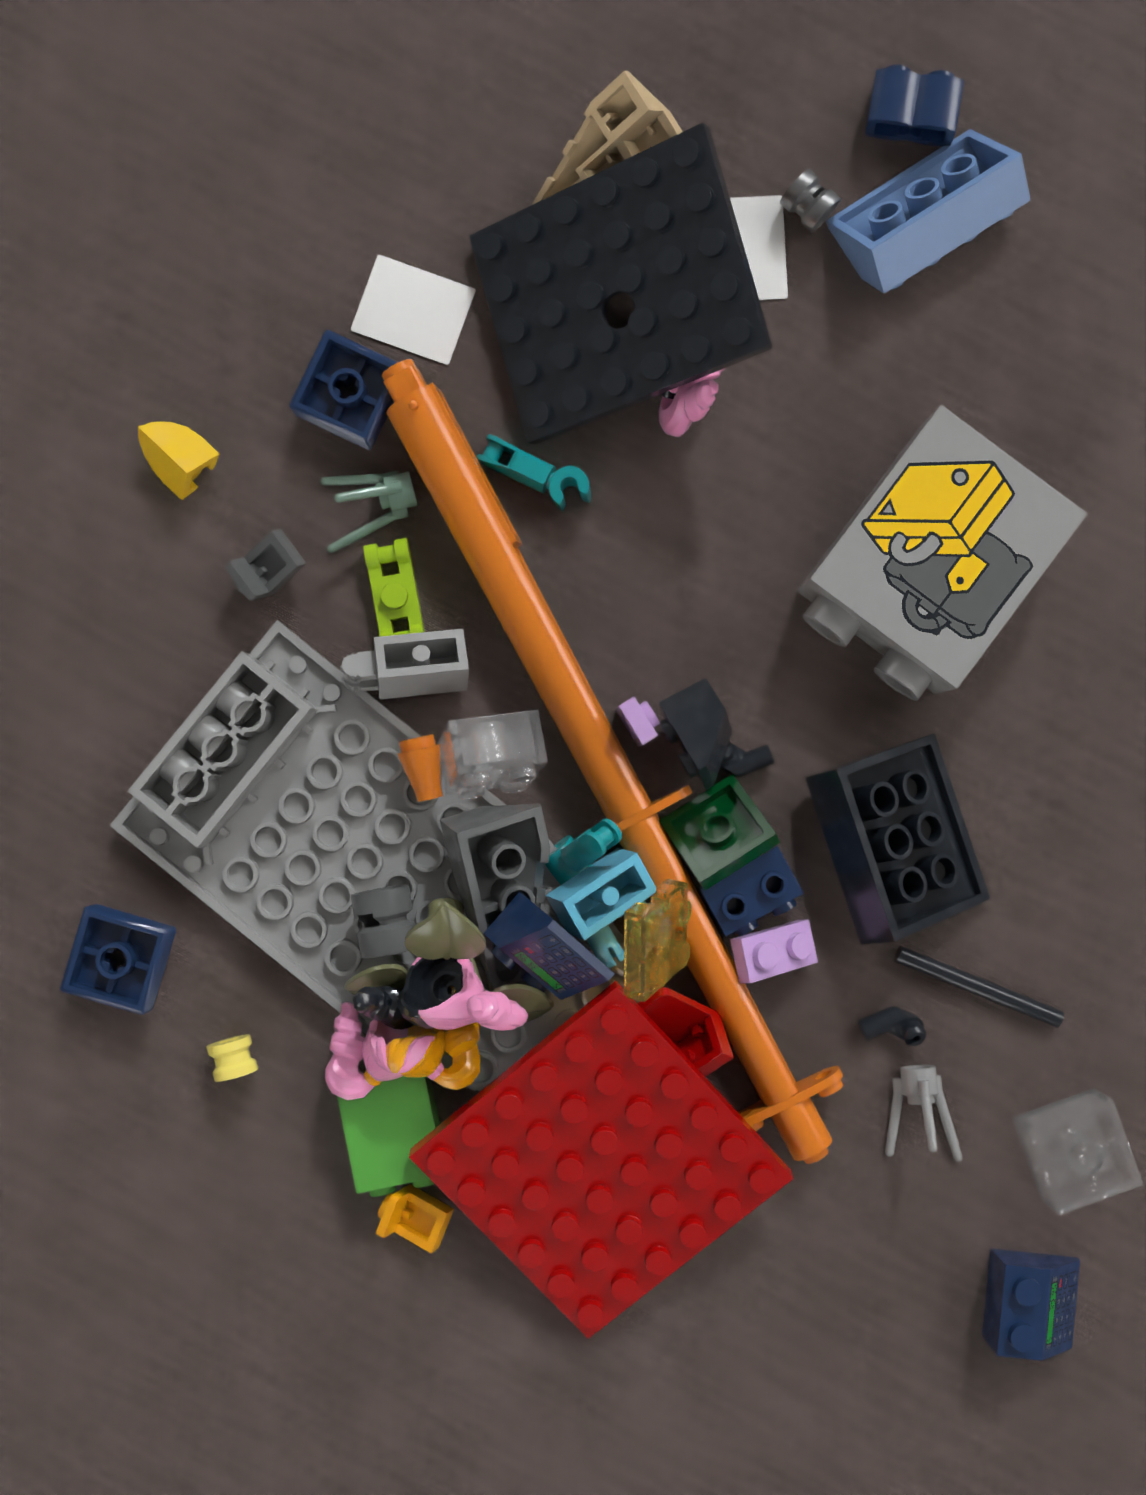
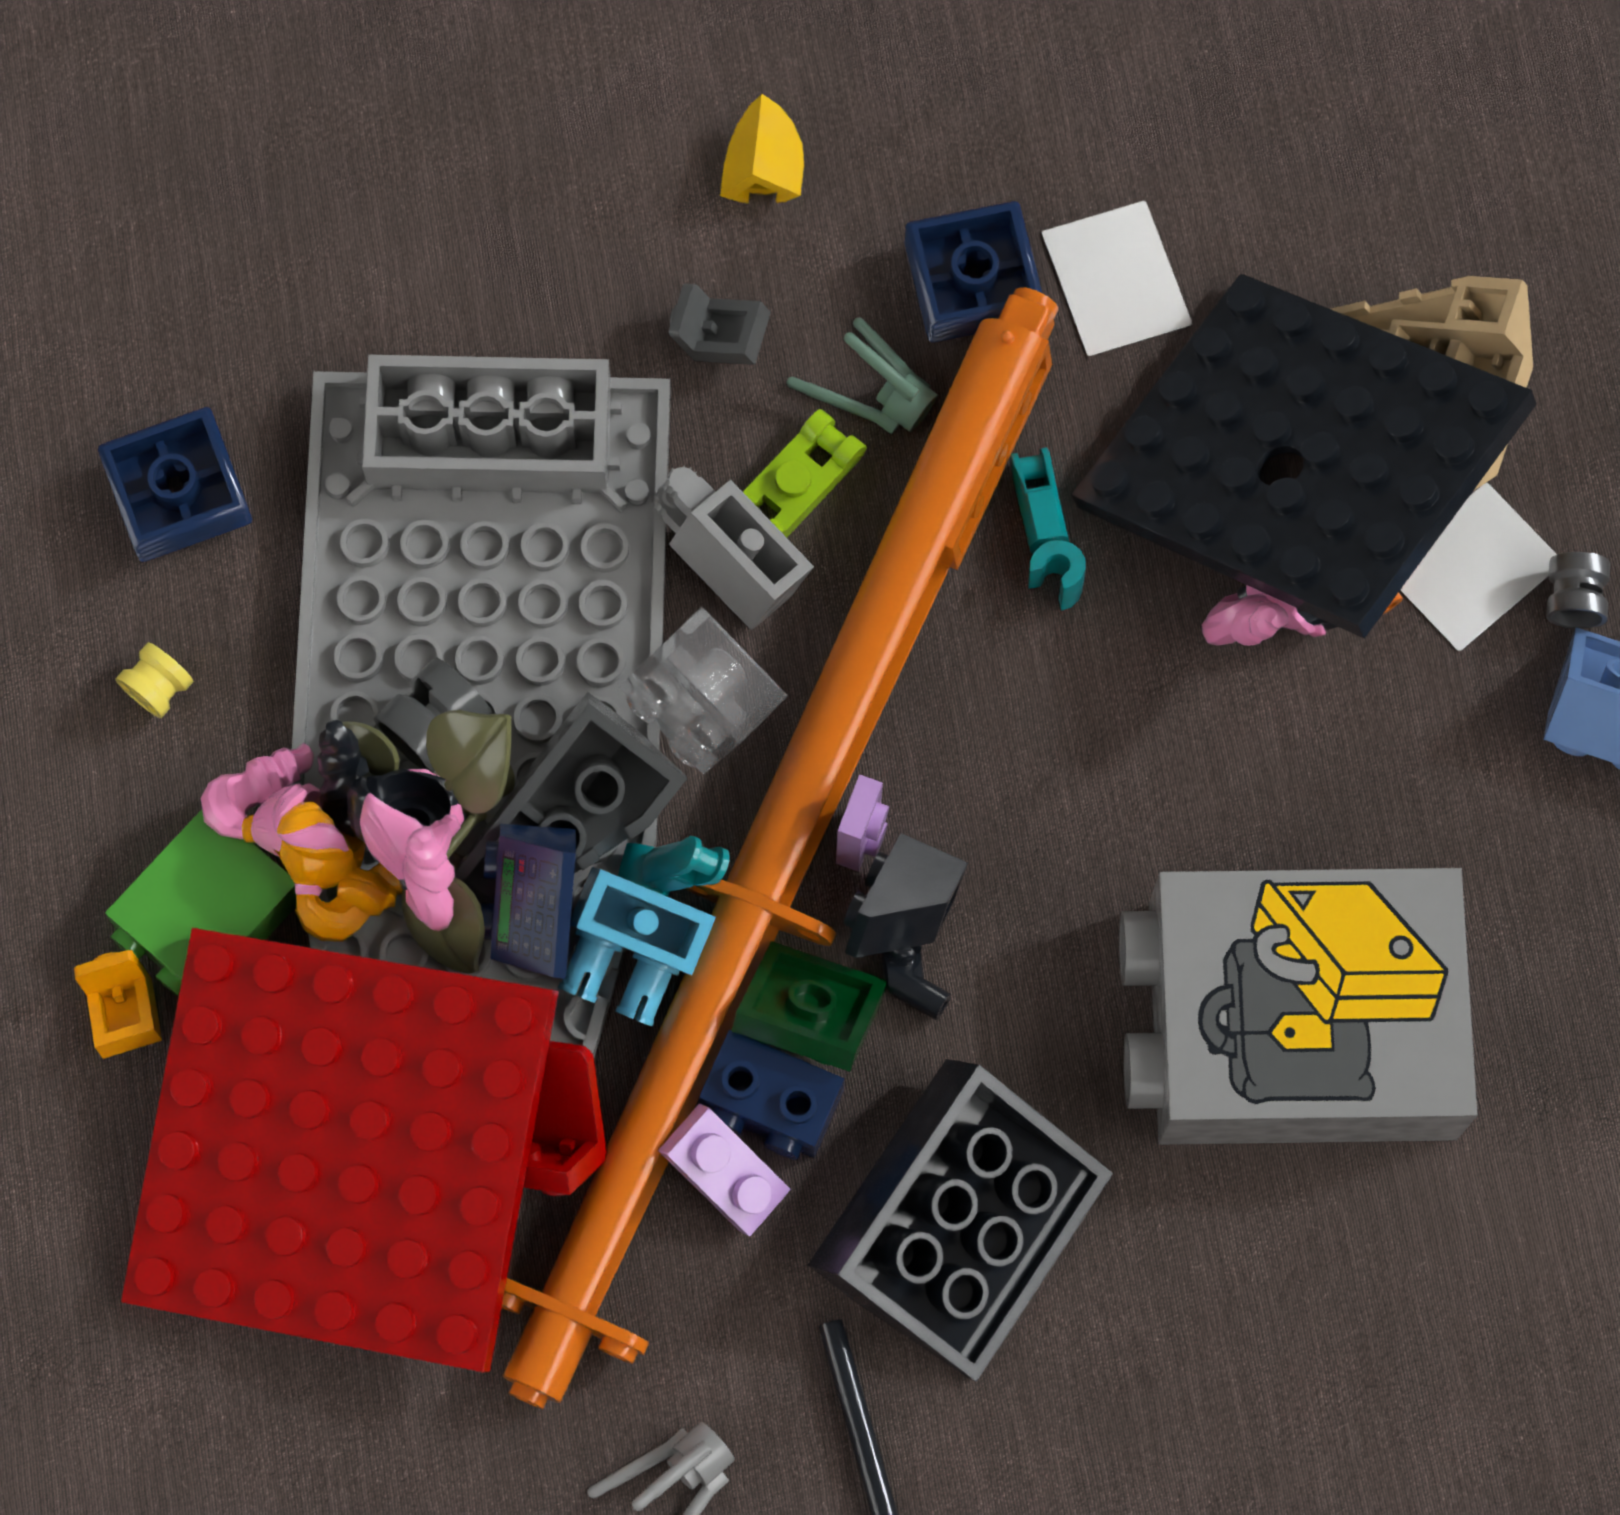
camera: 55 degrees right, 15 degrees down
(422, 766) = (632, 634): orange cone -> none
(656, 940) = (636, 1005): clear yellow brick -> none
(896, 1022) = (749, 1376): black arm -> none

